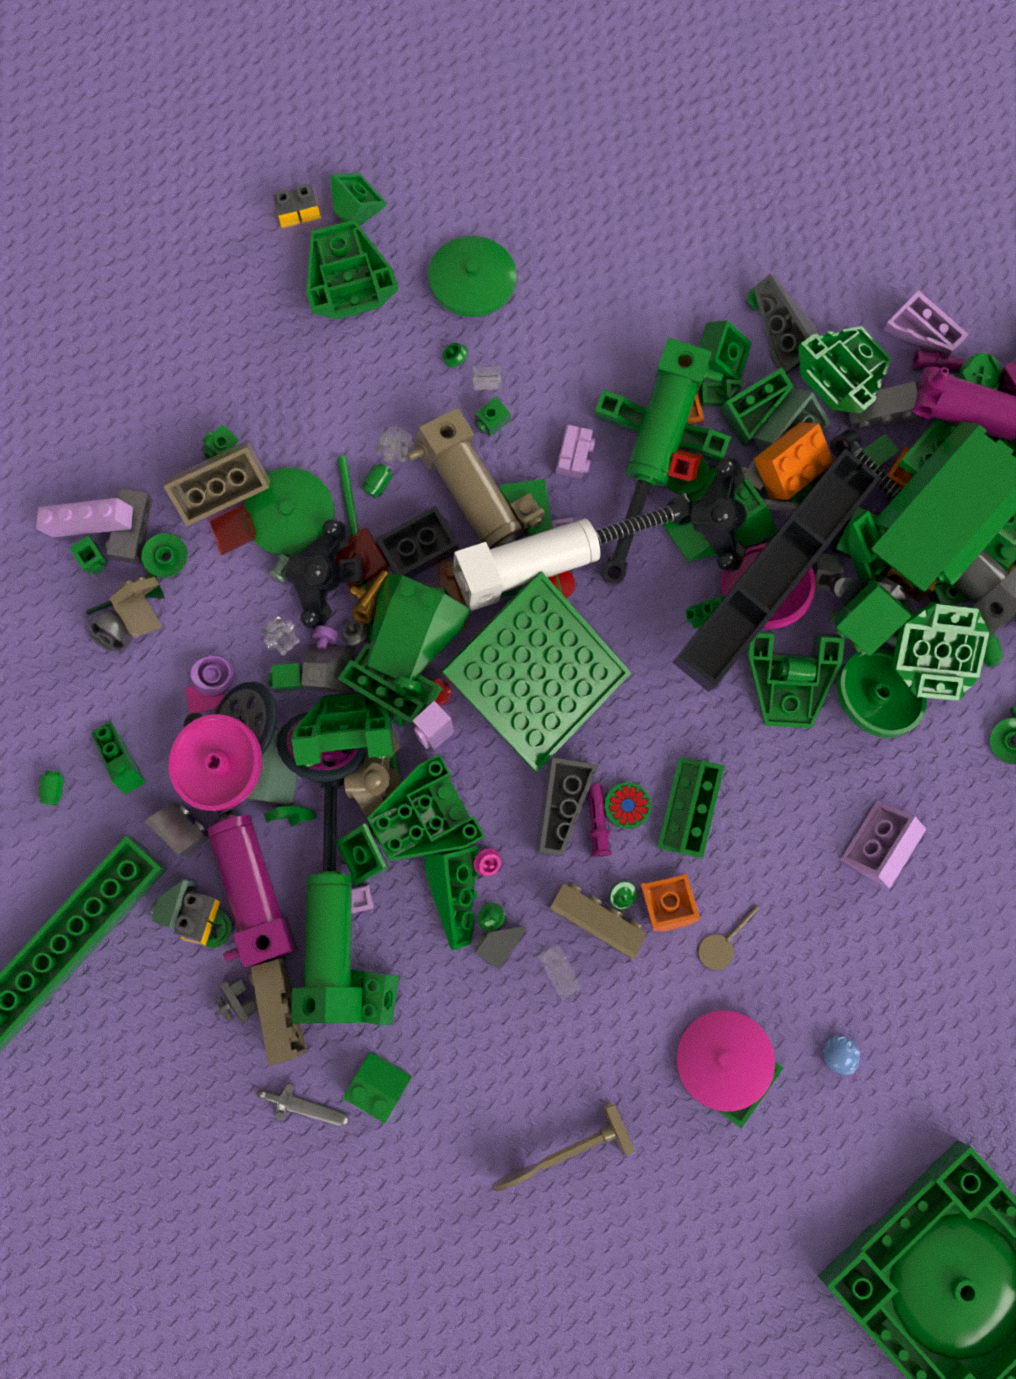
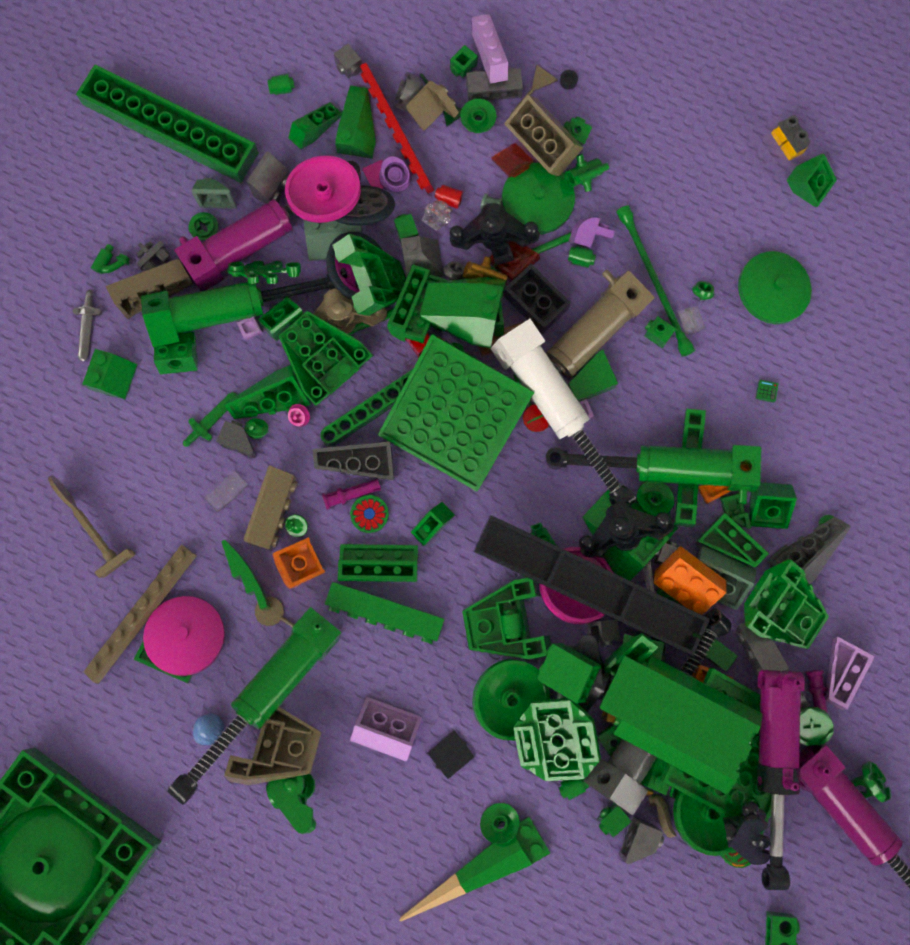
camera: 75 degrees right, 0 degrees up
(45, 696) = (347, 61): none -> flat silver brick
(136, 706) = (356, 127): none -> green wedge
(137, 470) = (541, 79): none -> dark tan piece
(142, 661) = (392, 122): none -> red plate
(147, 437) = (568, 79): none -> black tile
(193, 919) = (202, 206): dark grey hips -> none
(220, 1066) = (103, 258): none -> green plant
(258, 615) = (449, 195): none -> red brick
(275, 448) = (584, 172): none -> green pin
(293, 850) = (238, 269): none -> green plant
(294, 814) = (302, 258): green slope -> none
(324, 636) = (445, 248): medium lavender tile -> none
(341, 416) = (684, 344): none -> green hose
(346, 272) = (745, 187): green wedge -> none
(347, 466) = (585, 230): none -> medium lavender brick
(394, 444) = (614, 260): clear brick -> none
(406, 684) = (417, 313): green hat -> none
(433, 726) = (389, 341): lavender brick -> none
(472, 985) = (201, 428): none -> green sword
(498, 776) = (366, 406): none -> green beam
(528, 511) = (585, 375): dark tan bracket -> none
(574, 452) = (649, 404): lavender brick -> none
(590, 320) = (766, 391): none -> green tile
(657, 732) = (432, 523): none -> green slope
(661, 973) = (241, 569): none -> green slope
(684, 465) = (659, 491): red brick -> none
(687, 1110) = (139, 614): none -> dark tan plate
(749, 814) = (383, 611): none -> green brick
(768, 907) = (309, 642): none -> green piece
(887, 965) = (282, 751): none -> dark tan wedge
(925, 778) = (451, 754): none -> black piece
(930, 969) = (291, 798): none -> green piece

